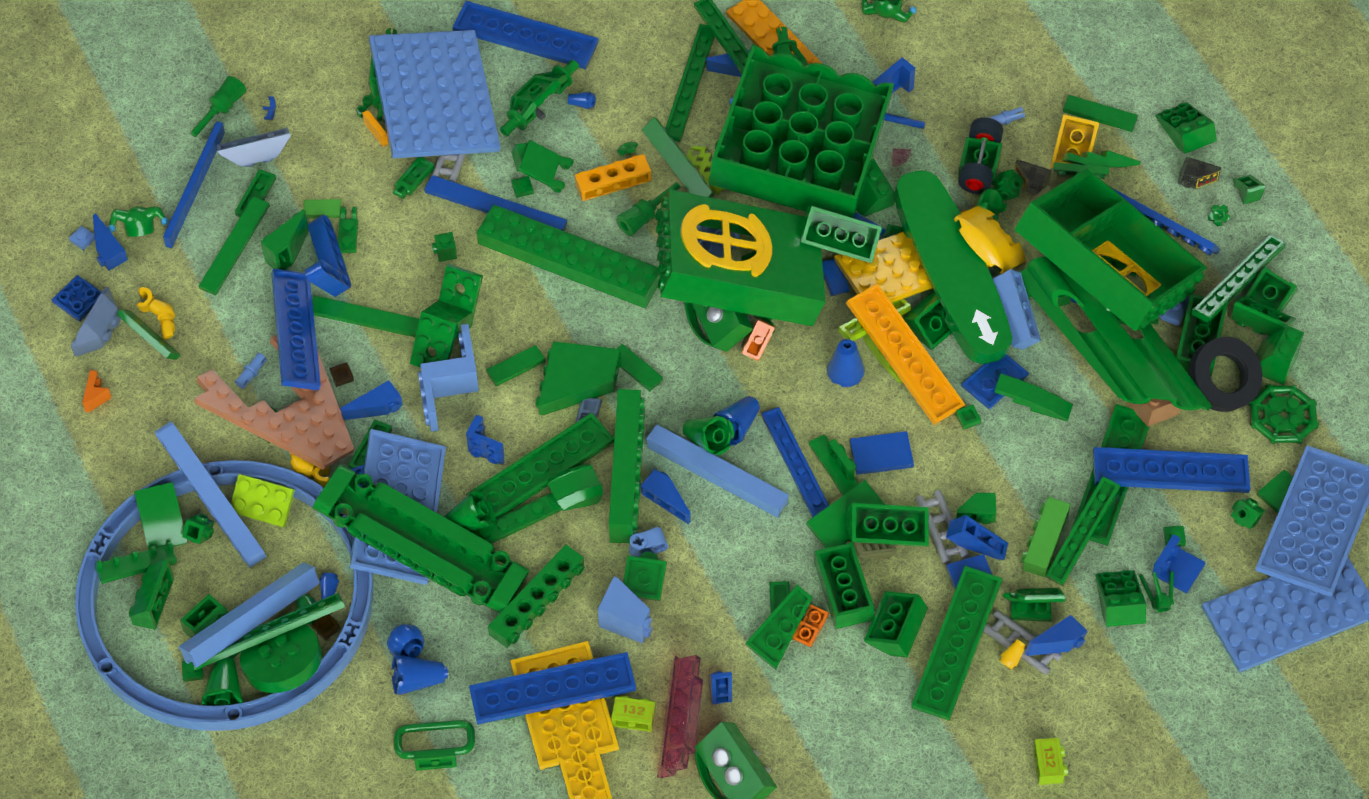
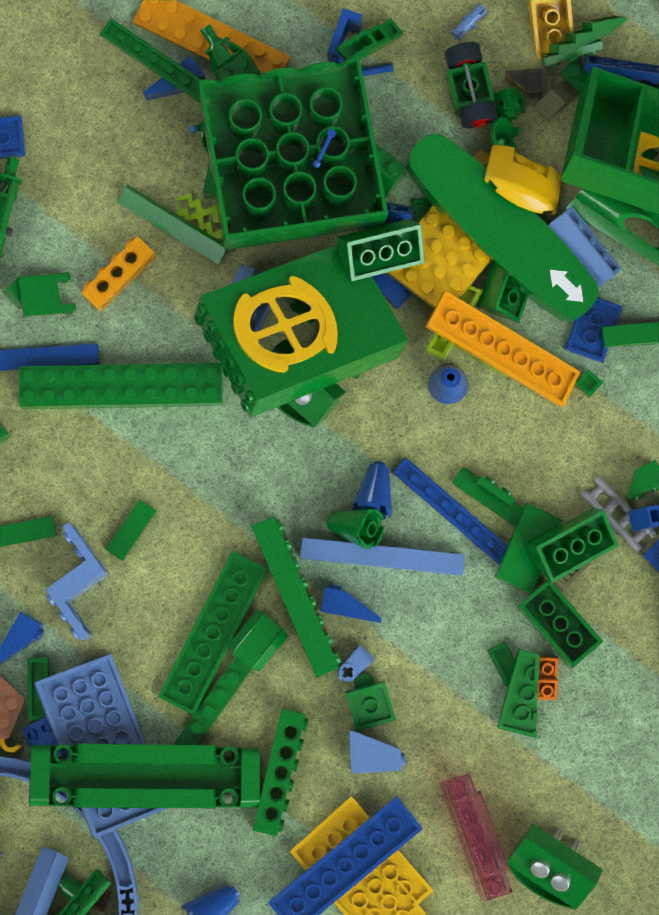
camera: 25 degrees left, 25 degrees up
(328, 584) = (78, 856): blue cone -> none
(405, 640) = (183, 883): blue plant -> none
(443, 319) = (41, 520): green bracket -> none
(472, 512) = (176, 723): green cone -> none
(480, 445) = (137, 630): blue bracket -> none
(522, 187) = (33, 325): green plate -> none
(576, 374) = (196, 516): green slope -> none
(583, 100) = (43, 195): blue cone -> none
(588, 406) = (225, 544): sand blue tile -> none
(628, 148) = (114, 232): green plant -> none
(633, 713) = (430, 849): lime brick -> none
(639, 369) = (247, 477): green tile -> none
(641, 213) = (169, 300): green piece -> none
(689, 83) = (138, 125): green tile -> none
(720, 687) = (497, 785): blue slope -> none
(757, 339) = (352, 399): slope -> none
(840, 124) = (331, 134): none -> blue hinge
(881, 453) = (525, 460): blue tile -> none
(896, 623) = (626, 641): green slope -> none
(900, 156) = (386, 115): tile -> none
(915, 94) = (370, 40): none -> green slope

